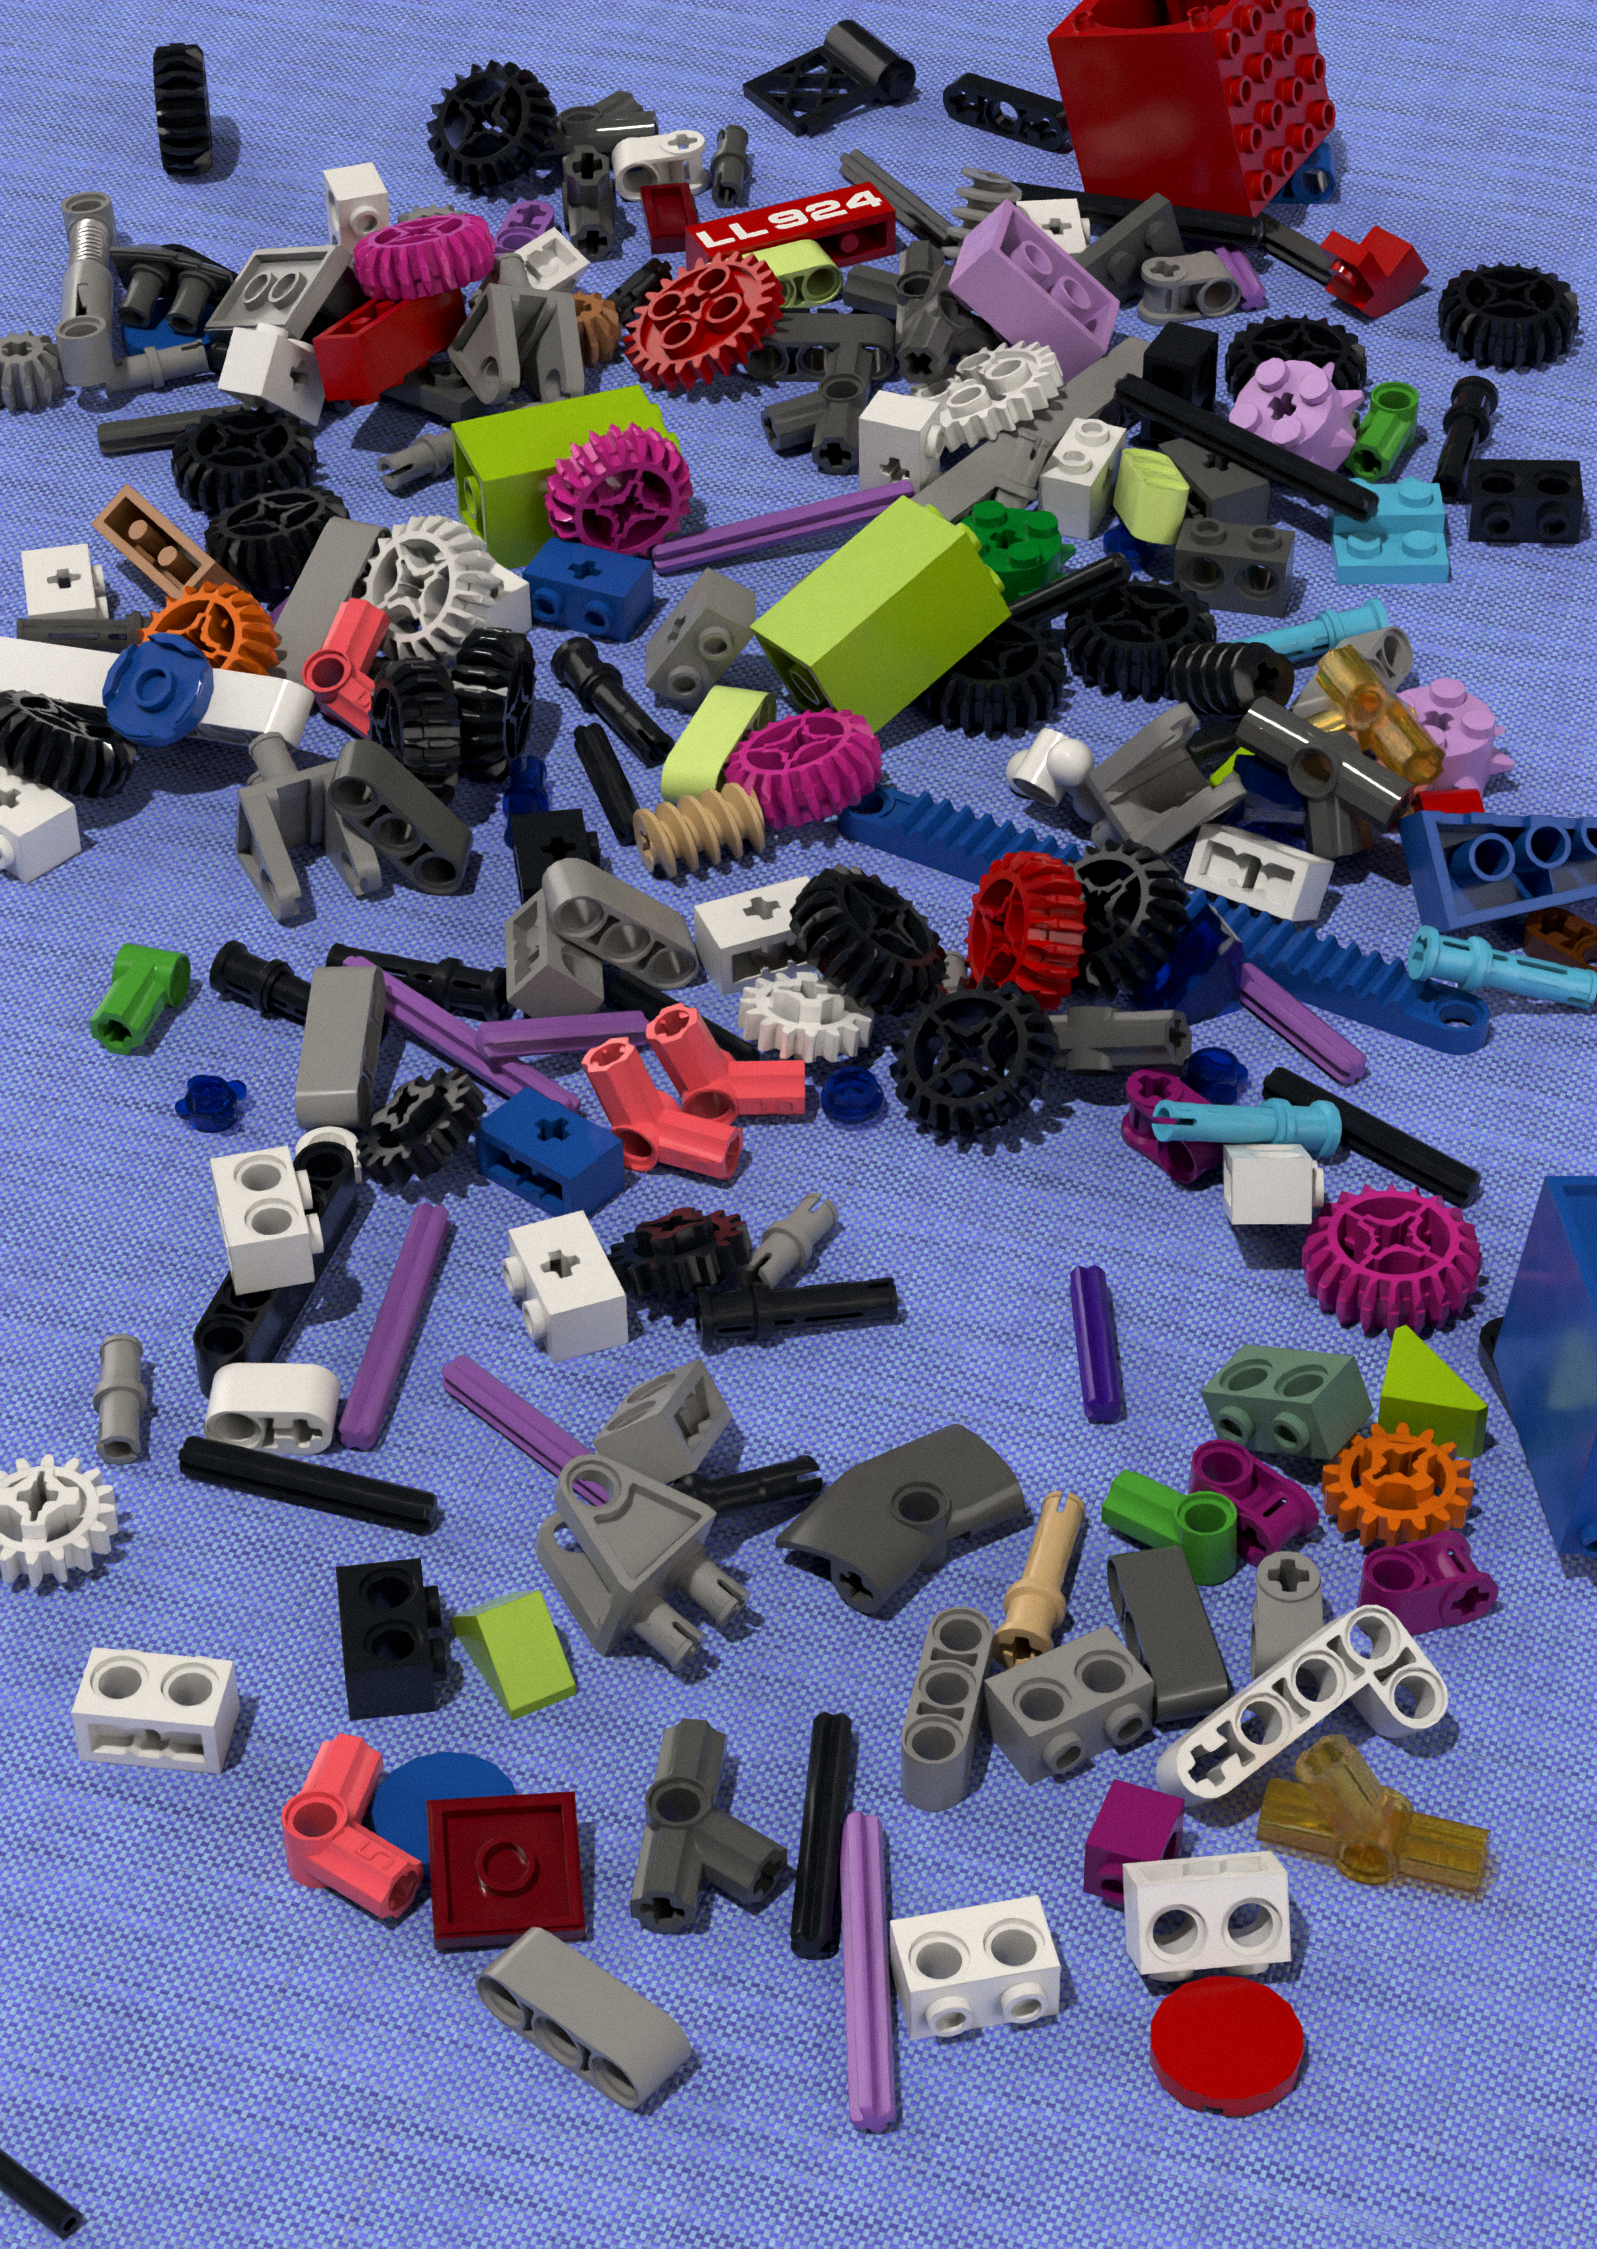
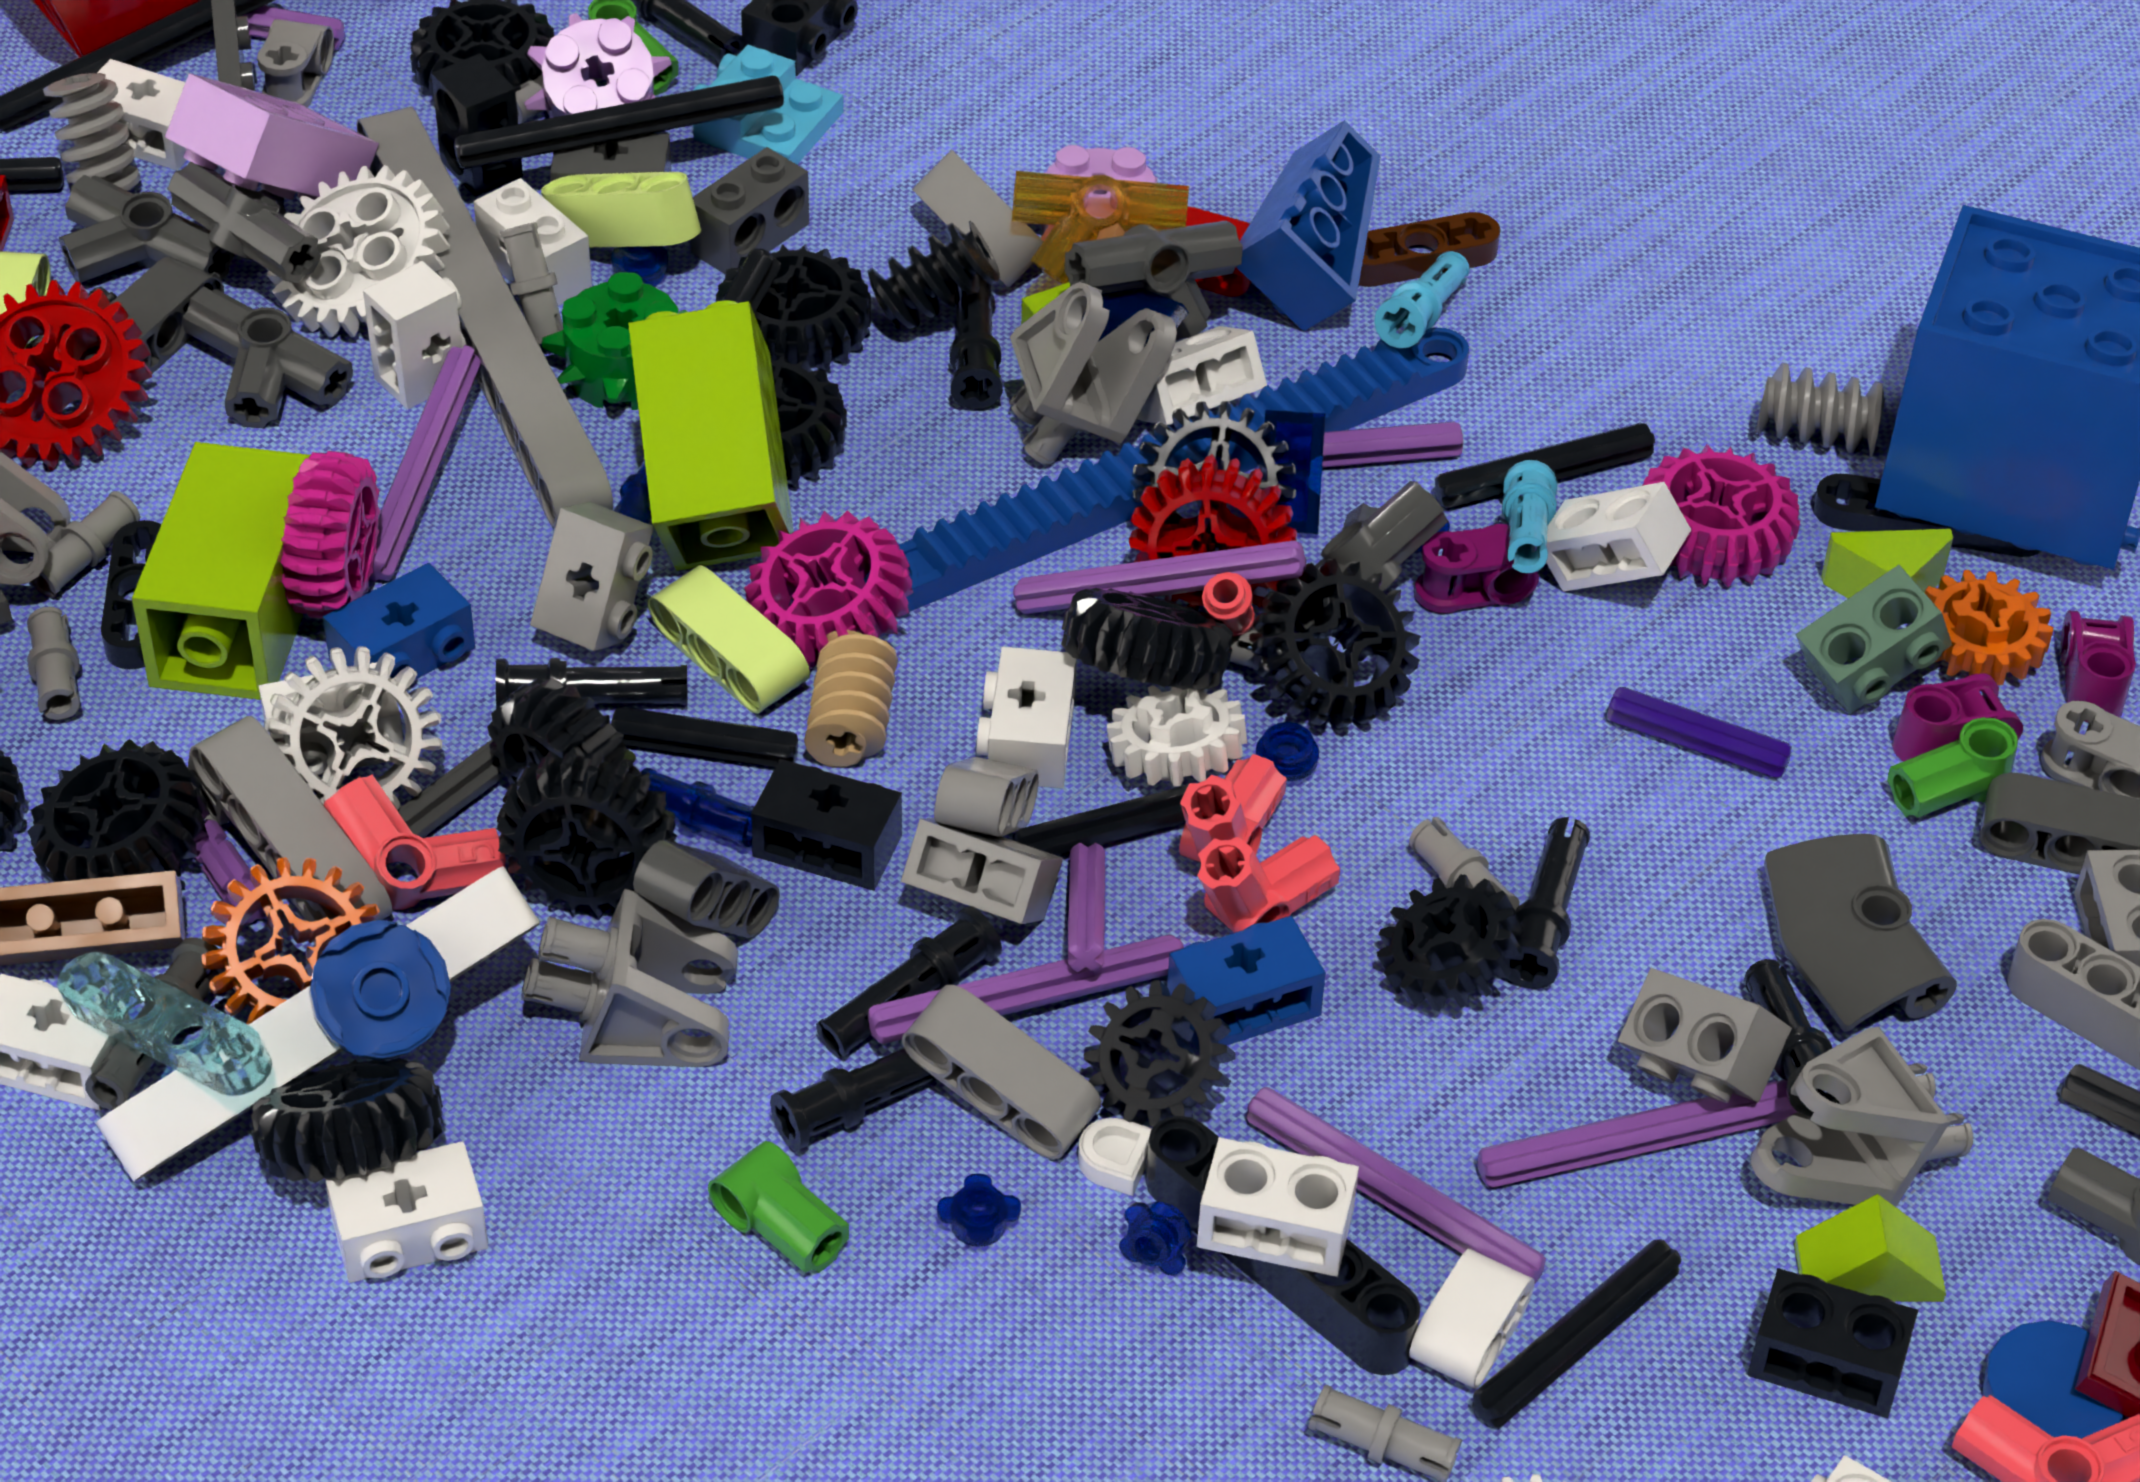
camera: 65 degrees left, 5 degrees up
(63, 614) = (172, 1013): none -> clear light blue beam
(566, 1287) = (1435, 1039): white brick -> none
(939, 959) = (1229, 600): none -> coral pin
(957, 927) = (1163, 575): none -> medium lavender axle
(1035, 1602) = (1999, 893): tan pin -> none
(1053, 768) = (968, 434): white piece -> none
(1324, 632) = (881, 203): medium azure pin -> none

